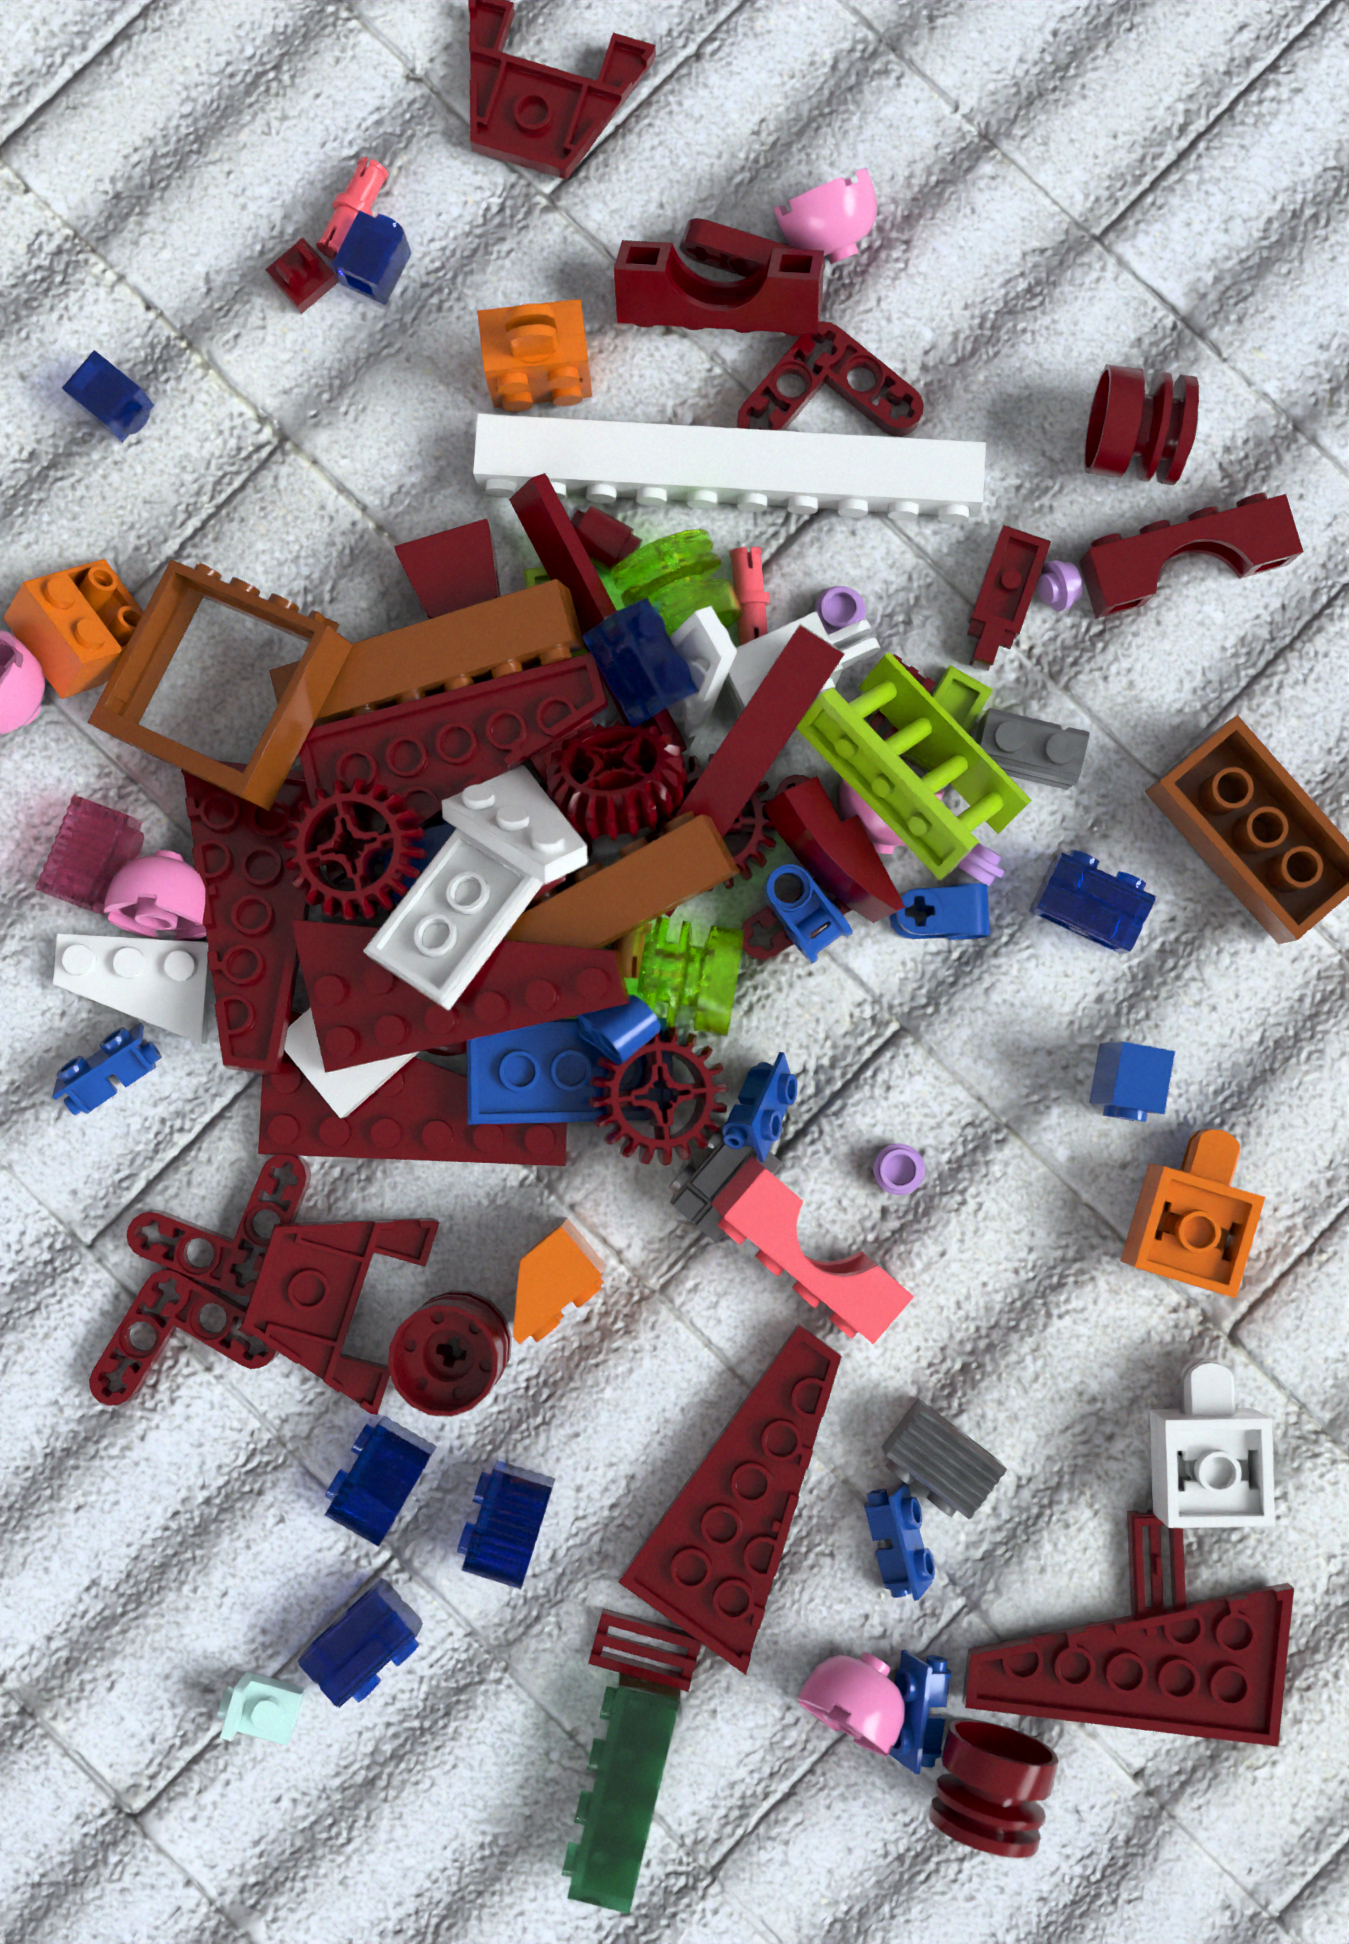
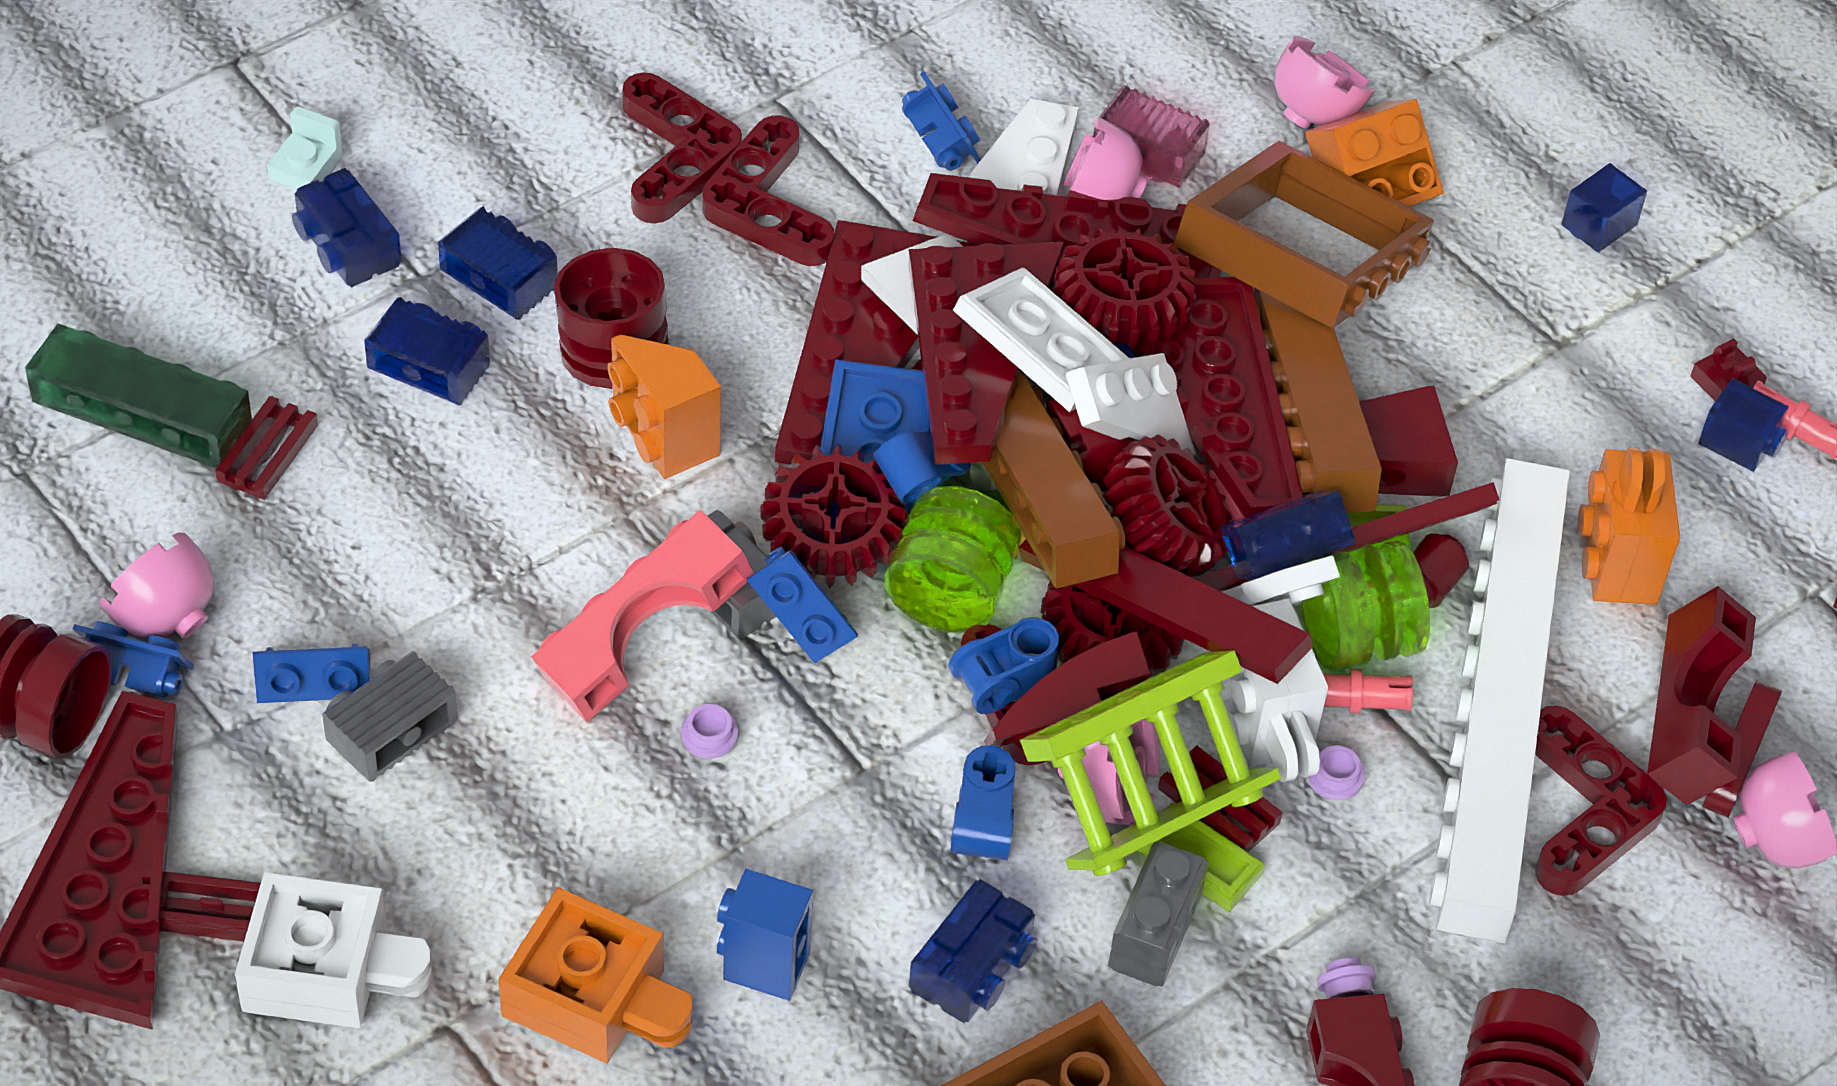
camera: 90 degrees right, 35 degrees down
(312, 1289) = (703, 236): dark red wing -> none
(727, 1527) = (378, 528): dark red wing -> none
(982, 864) = (1034, 853): lavender plate -> none
(1005, 593) = (1339, 926): dark red hinge -> none

